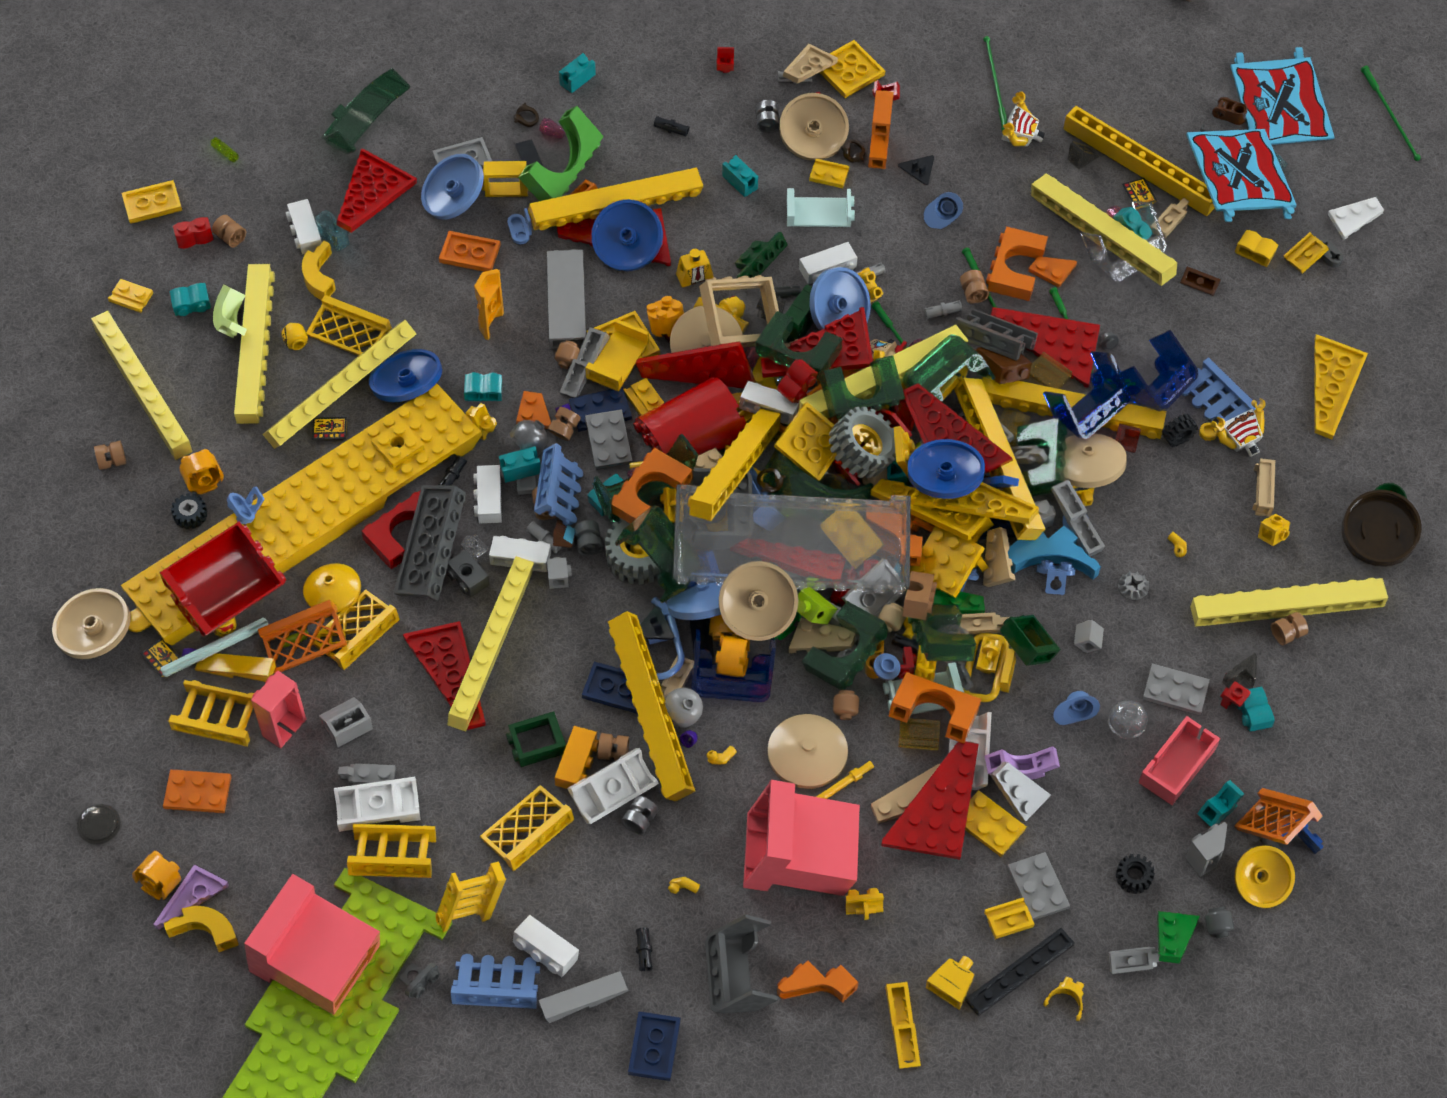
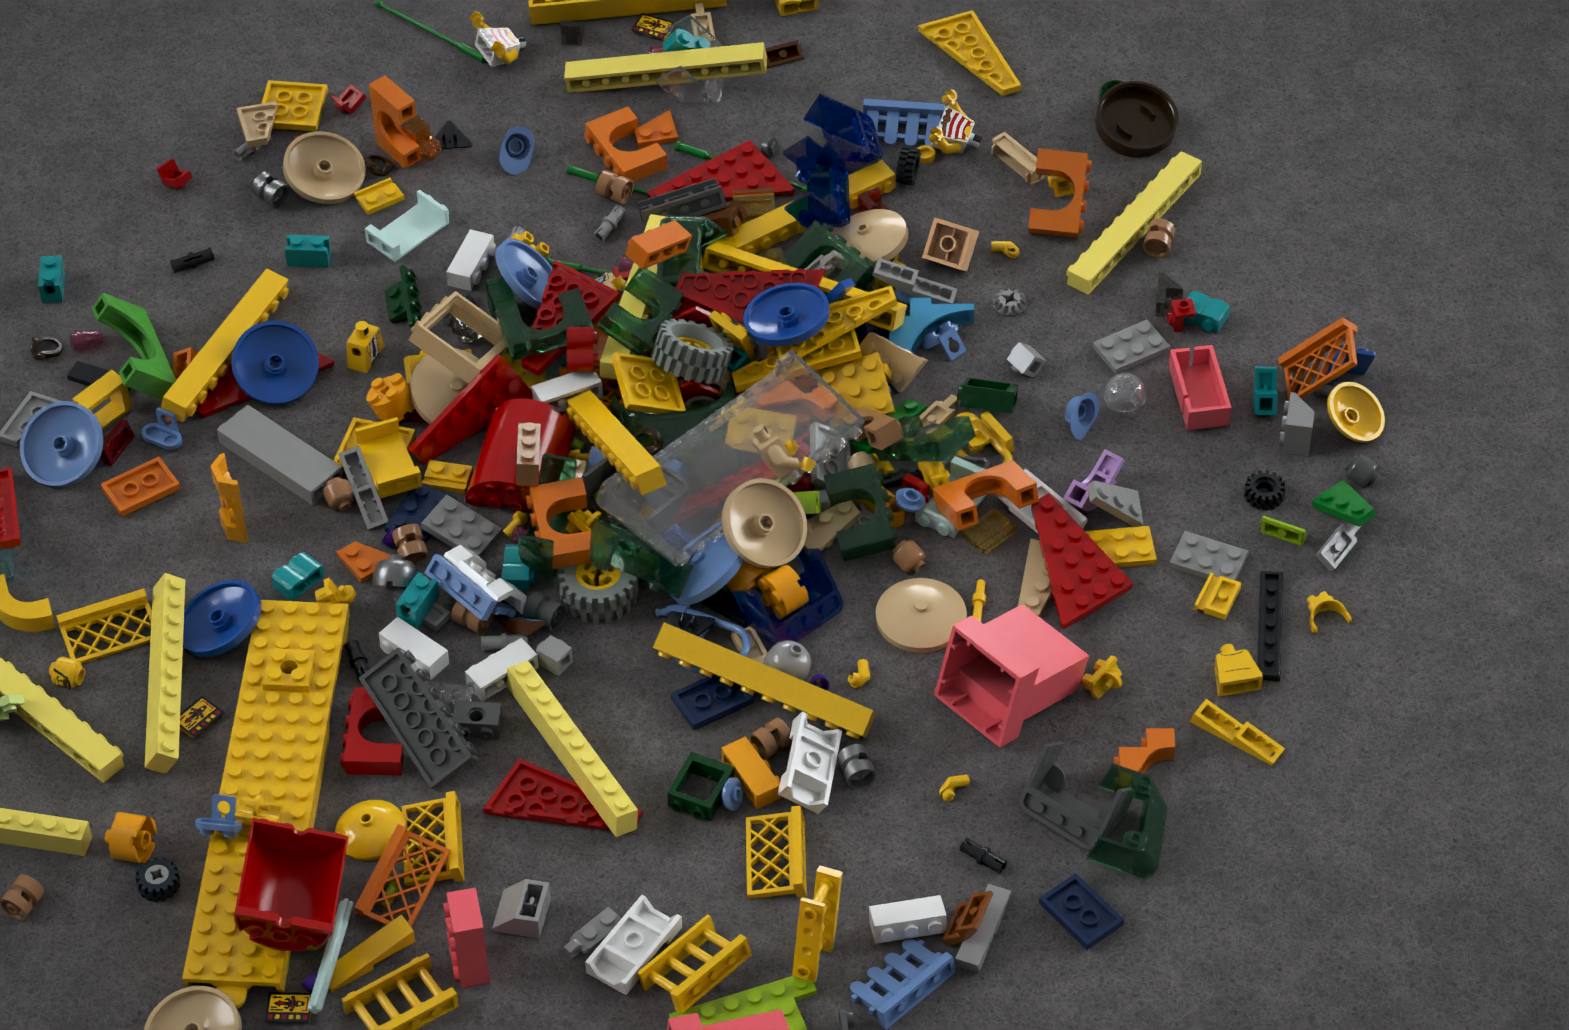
camera: 45 degrees left, 10 degrees down
(268, 521) = (258, 808): none -> yellow hips
(488, 210) = (116, 442): none -> dark red tile
(547, 762) = (732, 793): none -> medium blue piece
(573, 483) = (476, 570): none -> white piece
(575, 981) = (967, 918): none -> dark orange slope
(683, 418) = (528, 454): none -> medium nougat arch
(736, 1047) = (1140, 850): none -> clear green windscreen
(817, 559) = (777, 455): none -> tan torso
(895, 153) = (420, 132): none -> clear orange brick
(918, 350) = (658, 244): none -> orange brick
(1112, 914) = (1283, 531): none -> lime slope
(1135, 510) = (950, 244): none -> light nougat piece
(1243, 561) = (1073, 168): none -> orange arch

